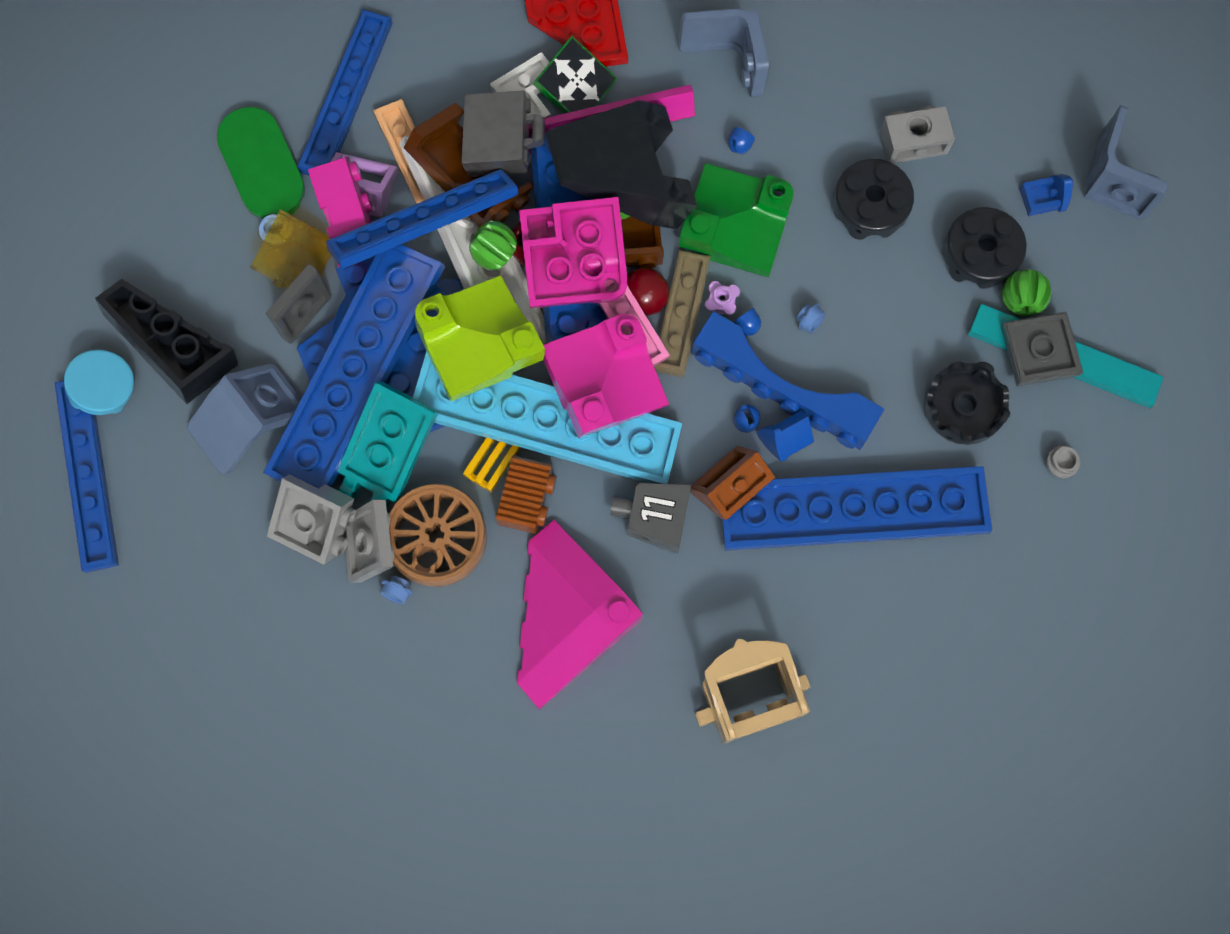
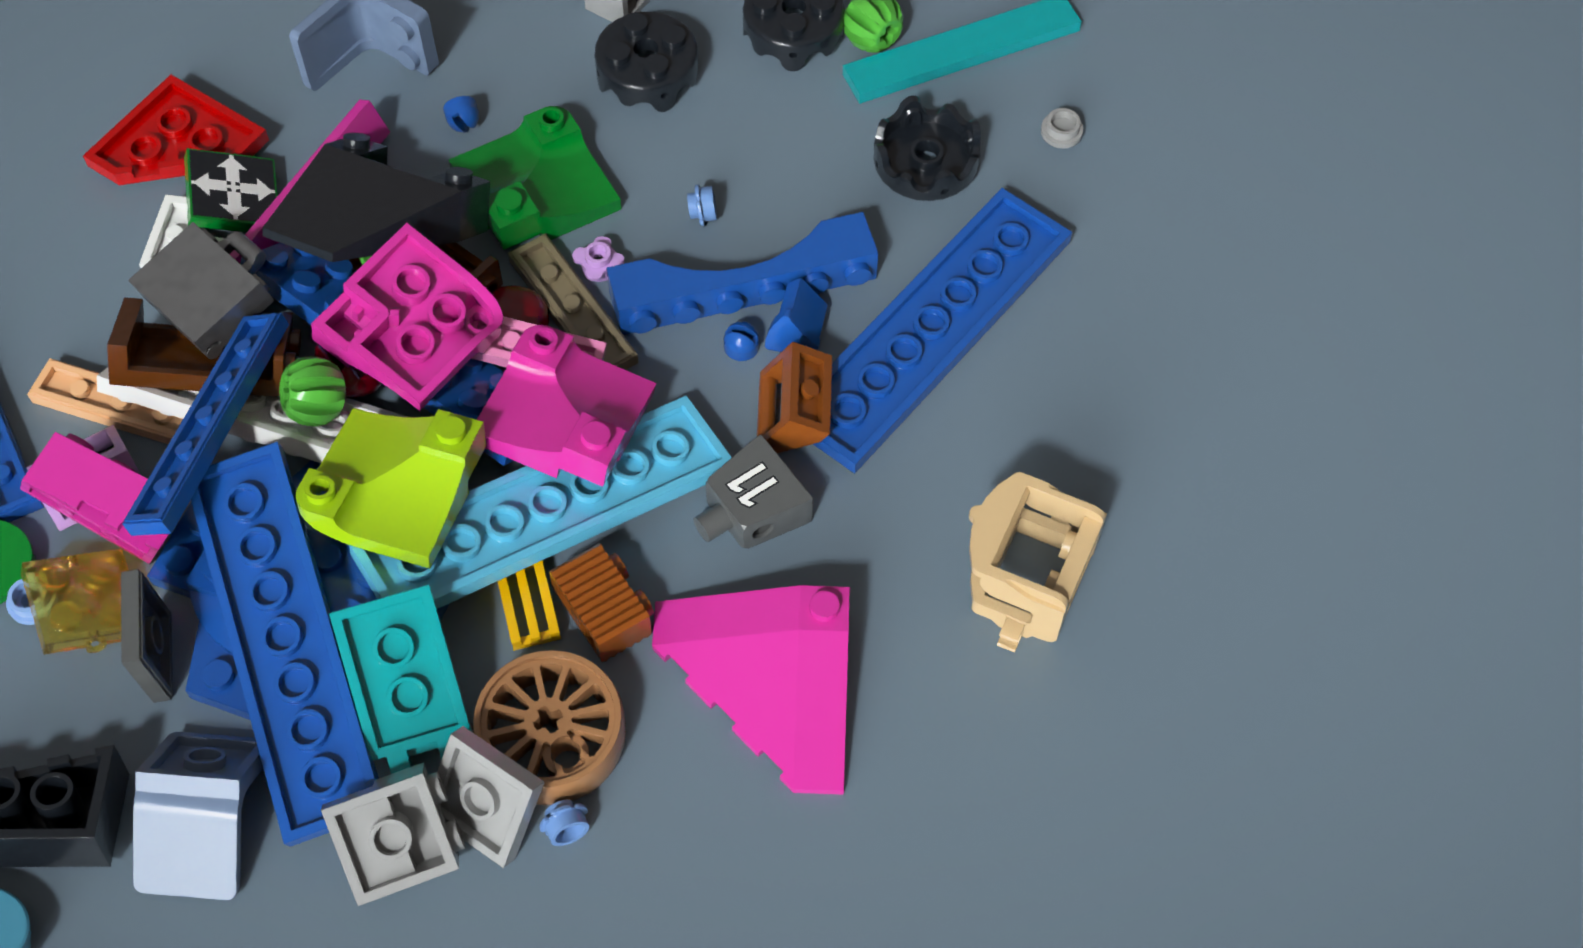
camera: 45 degrees left, 15 degrees down
(749, 322) = (650, 249): blue hinge -> none
(1041, 349) = (938, 54): dark grey tile -> none

